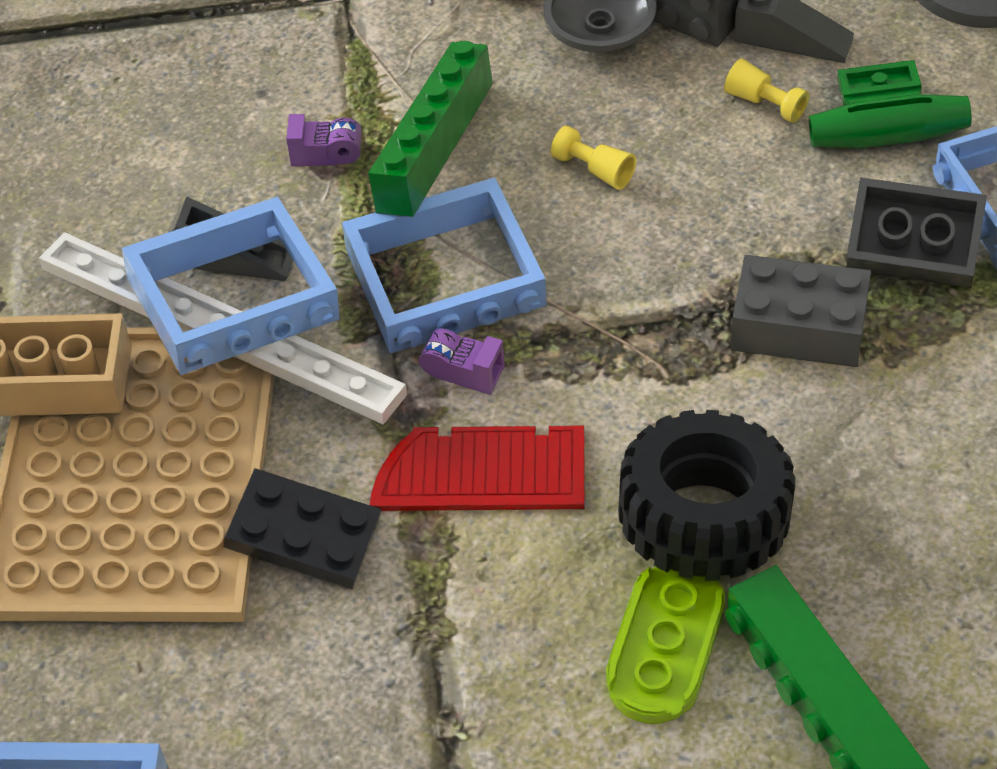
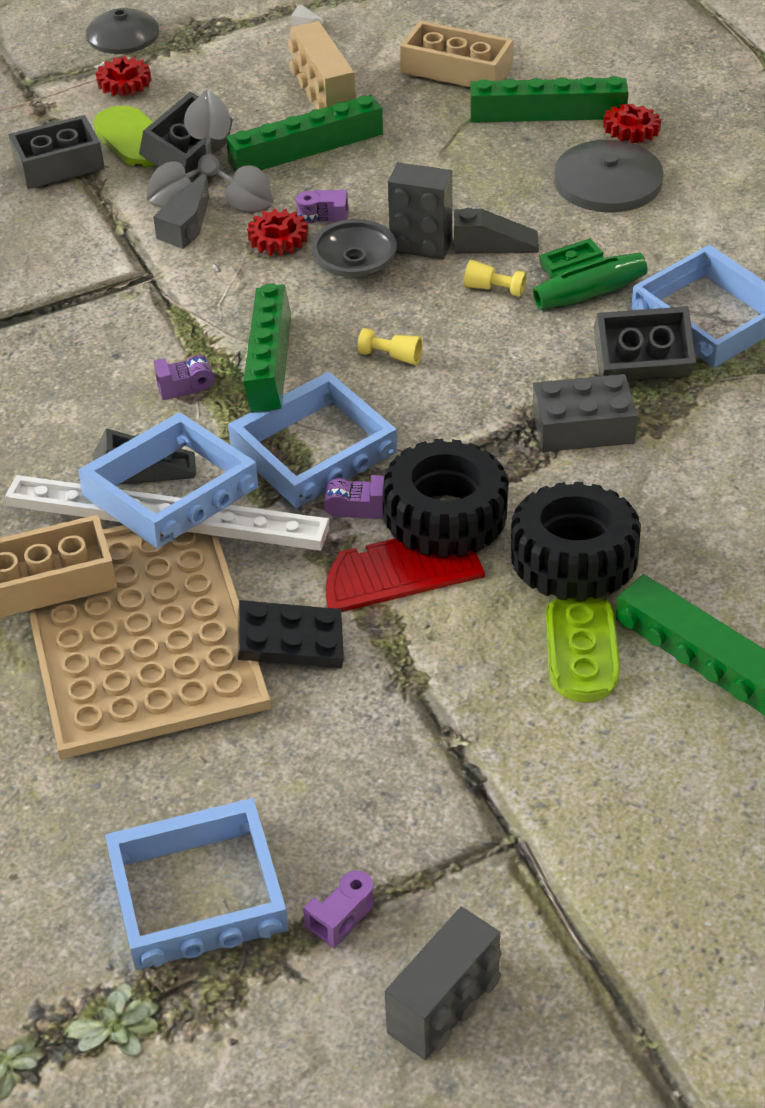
camera: 20 degrees left, 5 degrees down
(572, 349) = (444, 525): none -> black tyre

